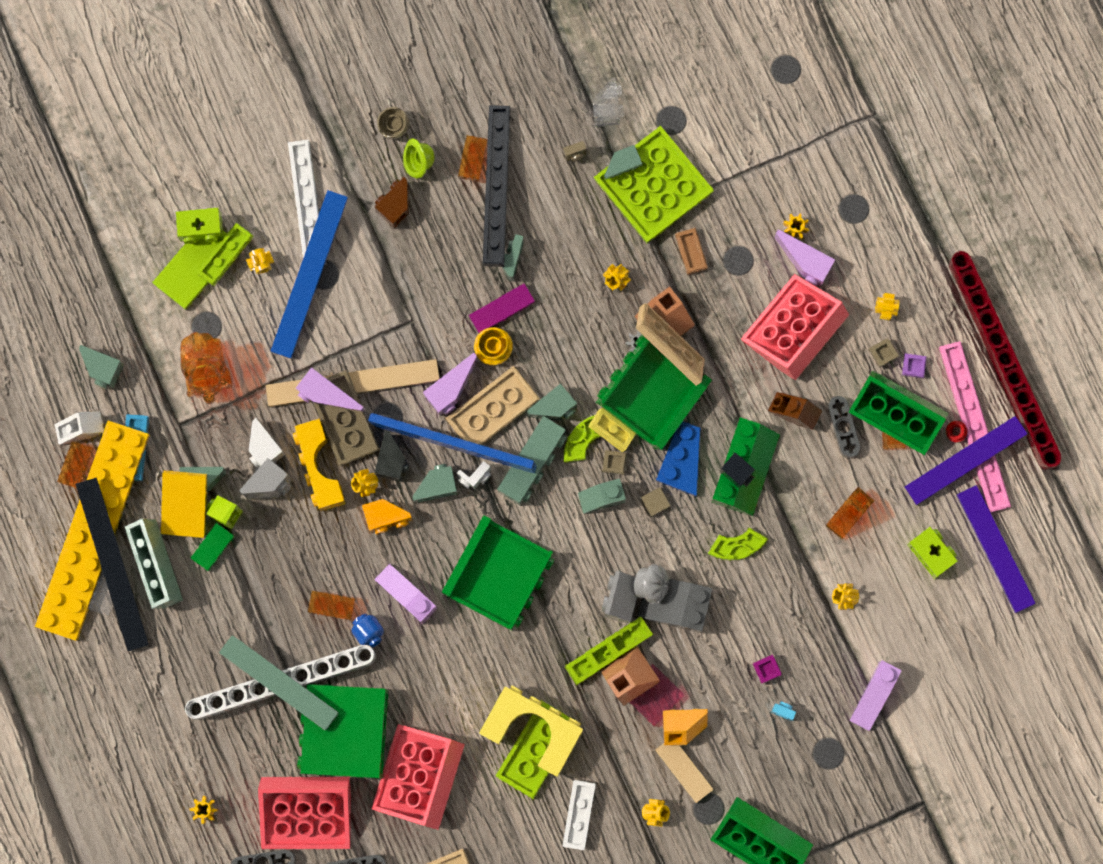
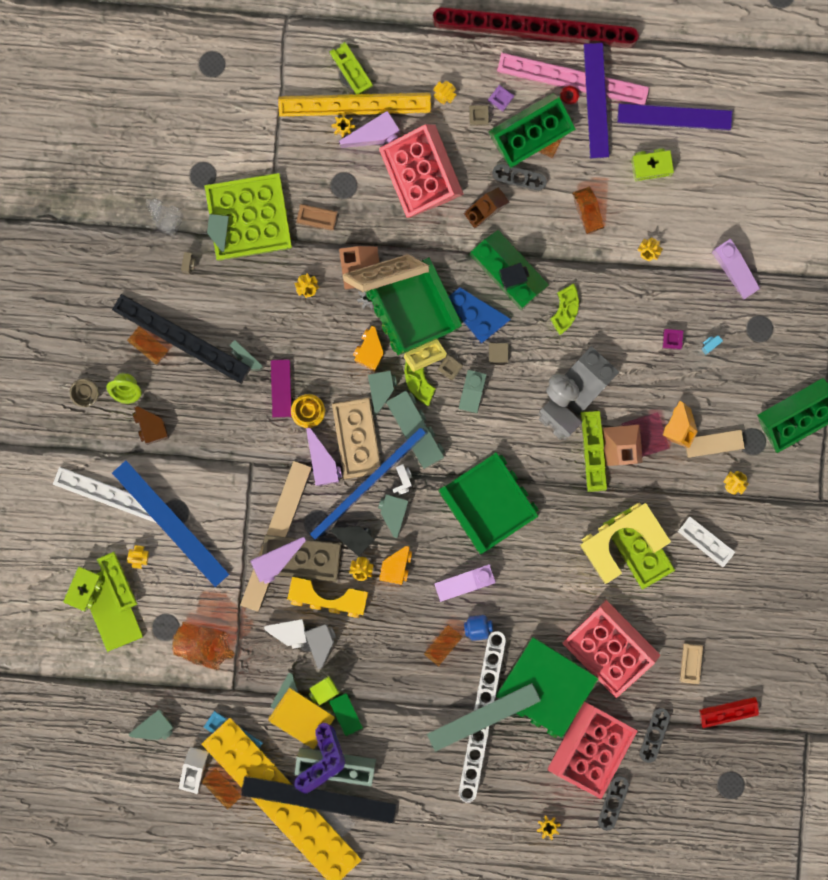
camera: 70 degrees left, 5 degrees up
(154, 554) = (331, 763): none -> dark purple beam
(587, 374) = (370, 352): none -> light orange slope
(824, 226) = (354, 104): none -> yellow tile
(857, 204) = (351, 69): none -> lime plate

